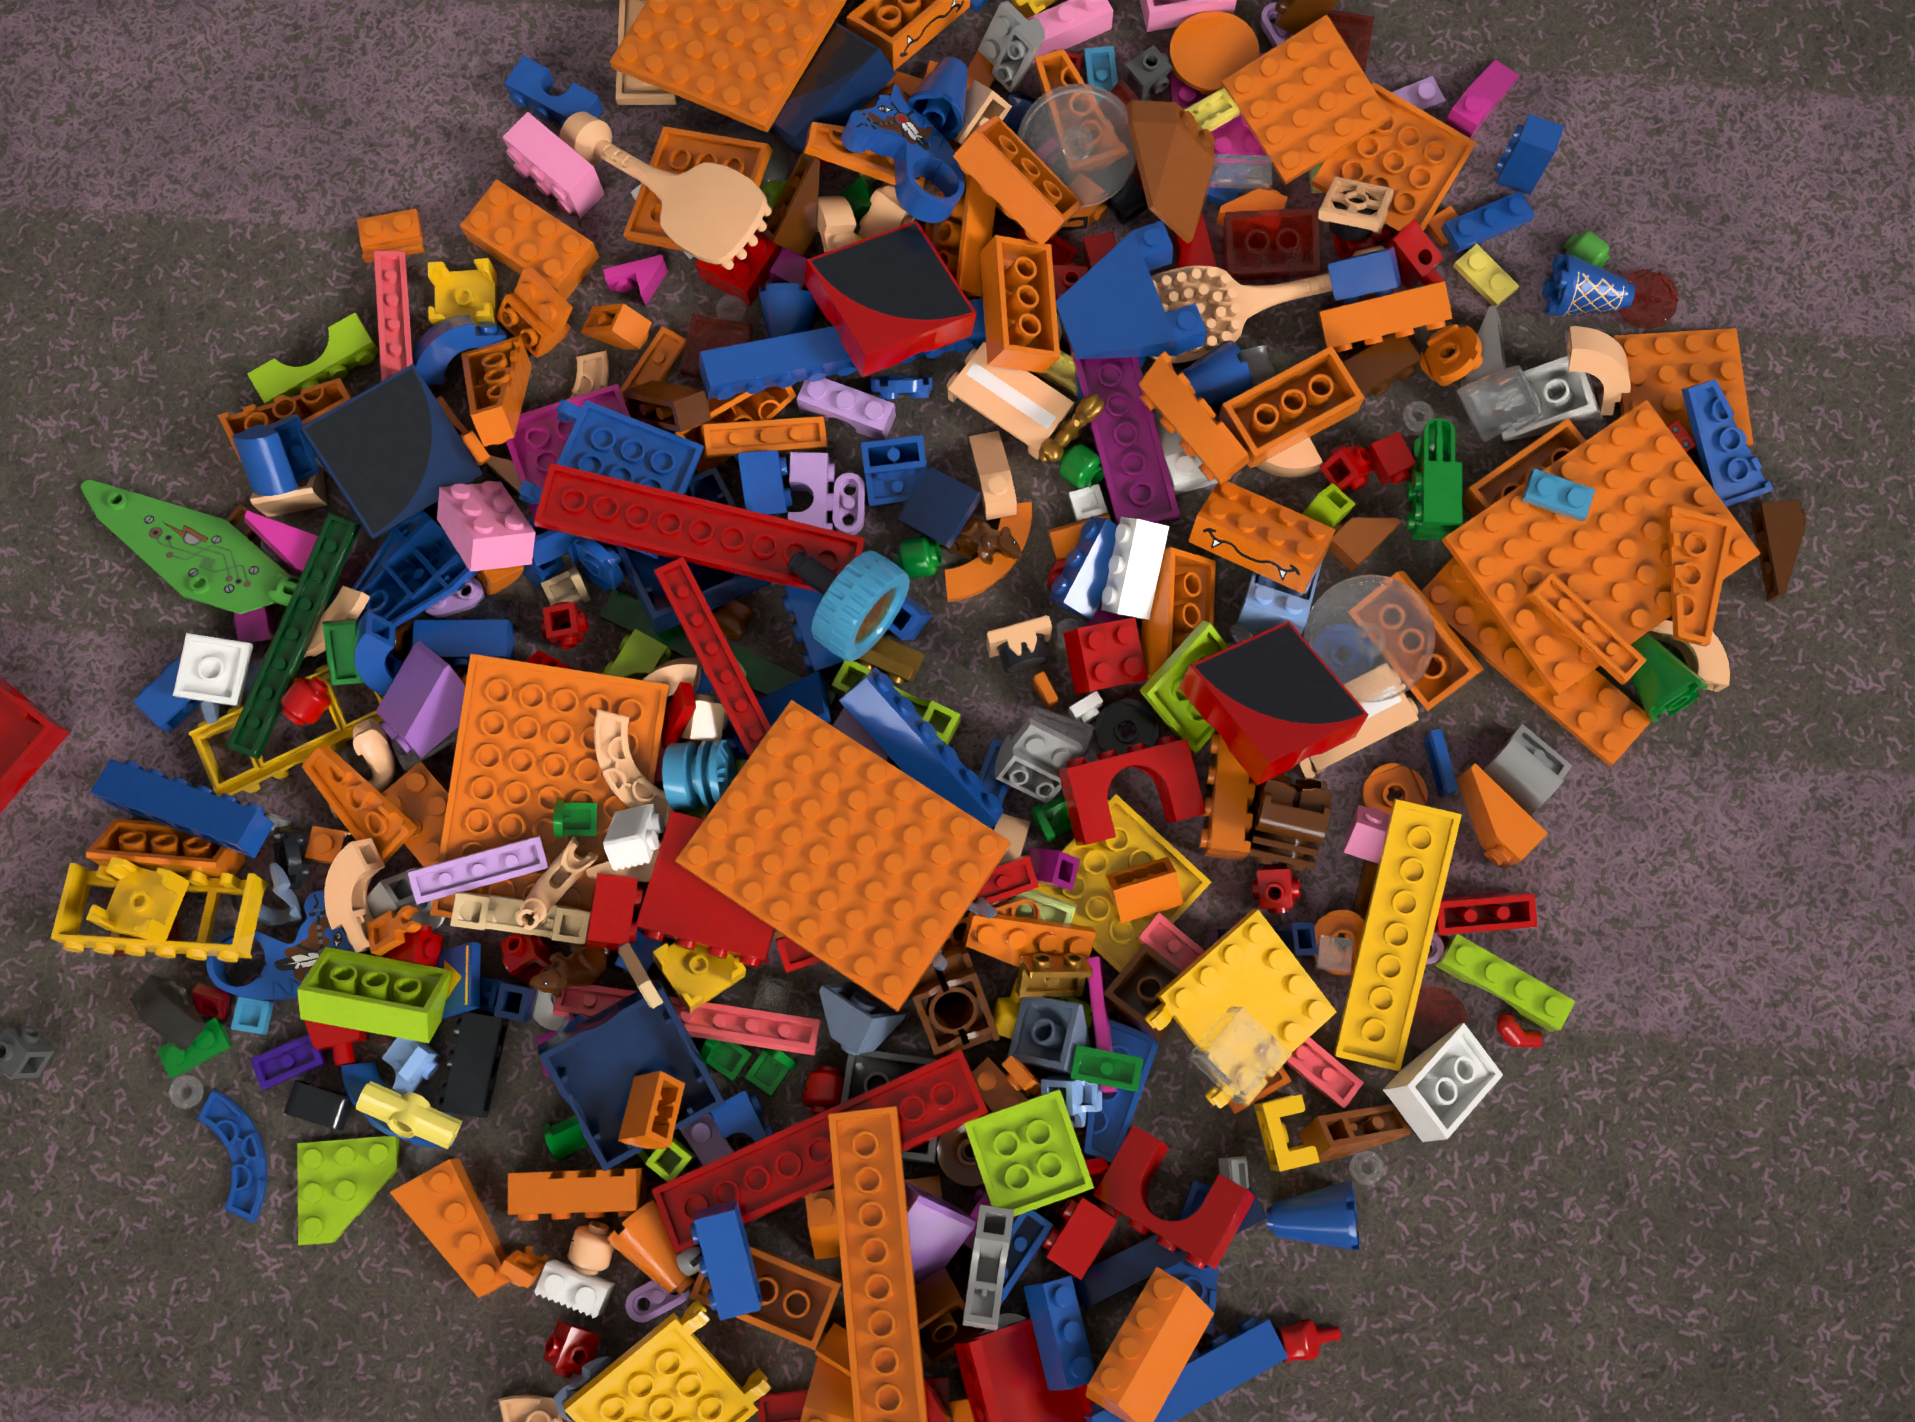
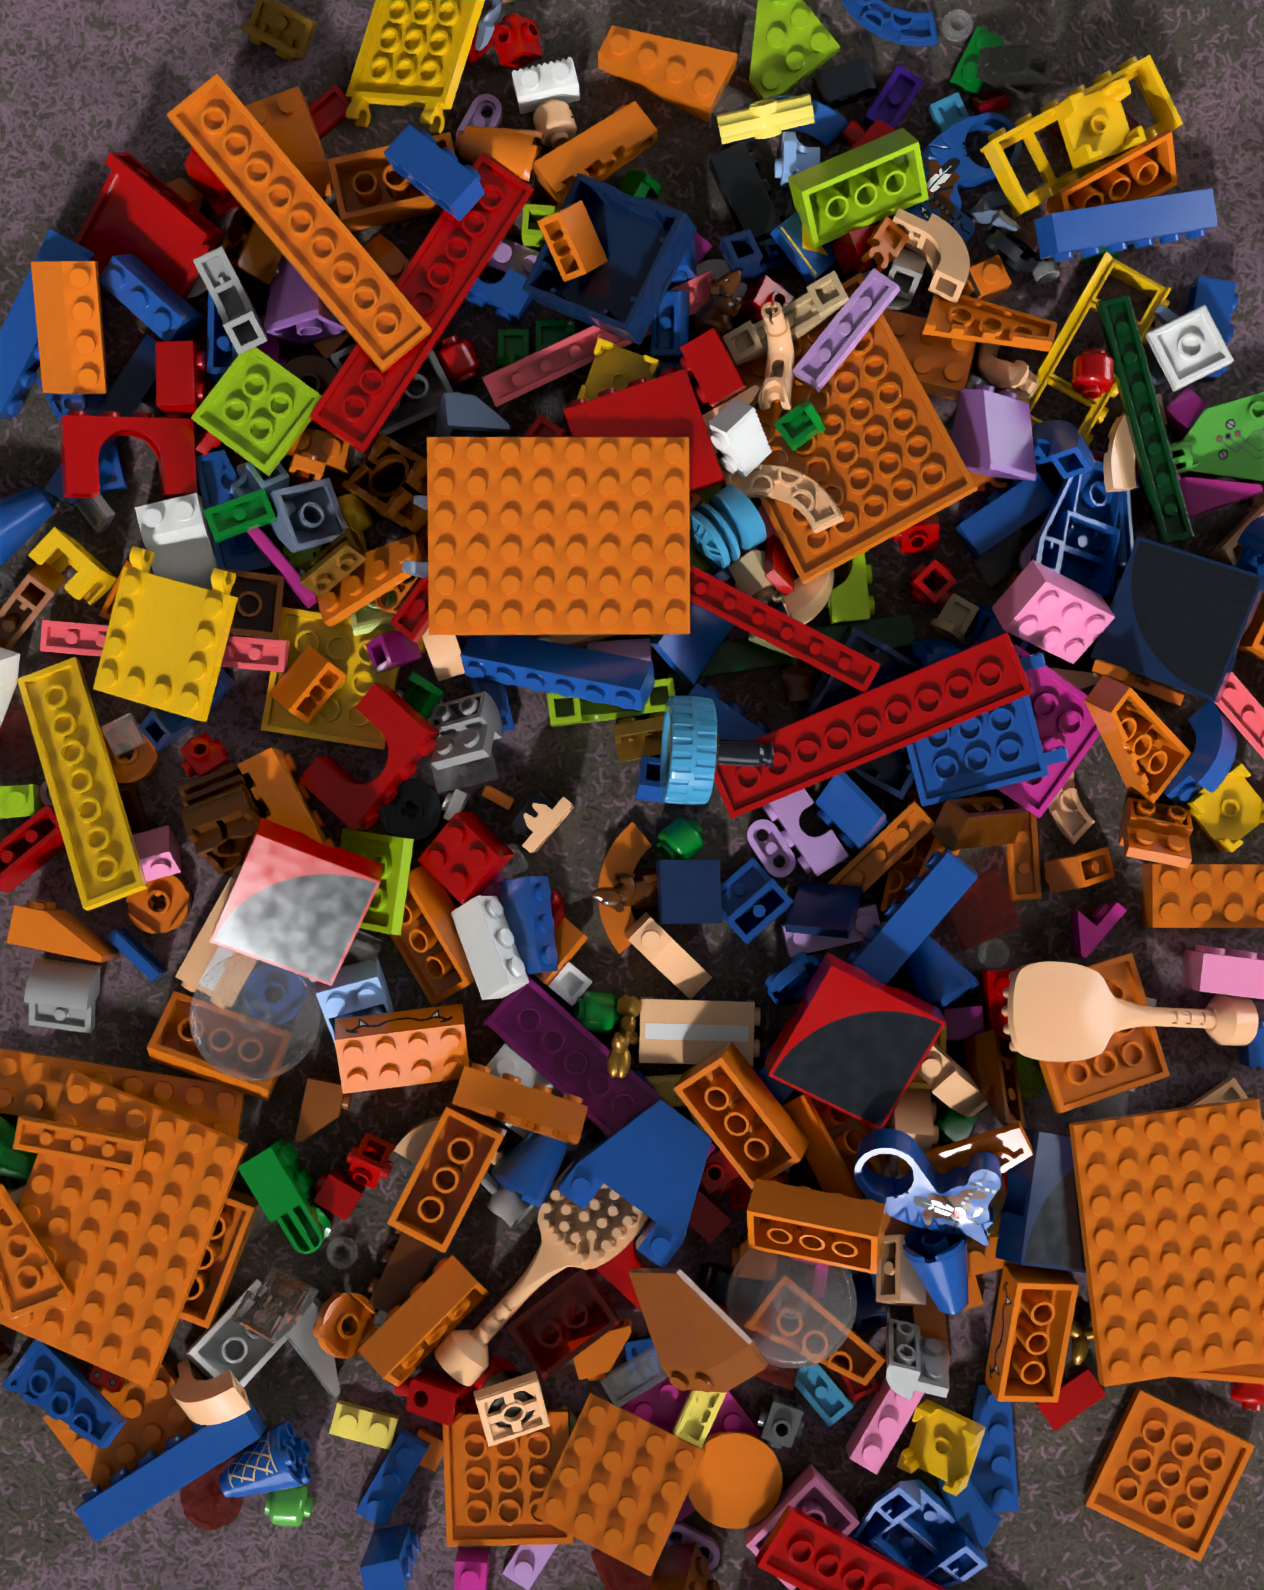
camera: 145 degrees right, 10 degrees up
(340, 651) = (1097, 433): green tile -> none
(524, 1267) = (594, 72): orange plate -> none
(616, 986) = (670, 325): none -> blue slope
(640, 975) = (650, 327): tan tile -> none
(689, 1260) = (470, 154): light grey hinge -> none
(840, 421) = (824, 909): none -> dark blue tile
(1174, 1094) = (180, 539): none -> white slope
(1239, 1055) = (140, 592): clear piece -> none
(1329, 506) = (363, 1112): lime brick -> none
(1364, 275) = (460, 1343): blue brick -> none
(1558, 495) = (170, 1245): dark azure plate -> none
(1679, 332) = (165, 1472): none -> blue brick

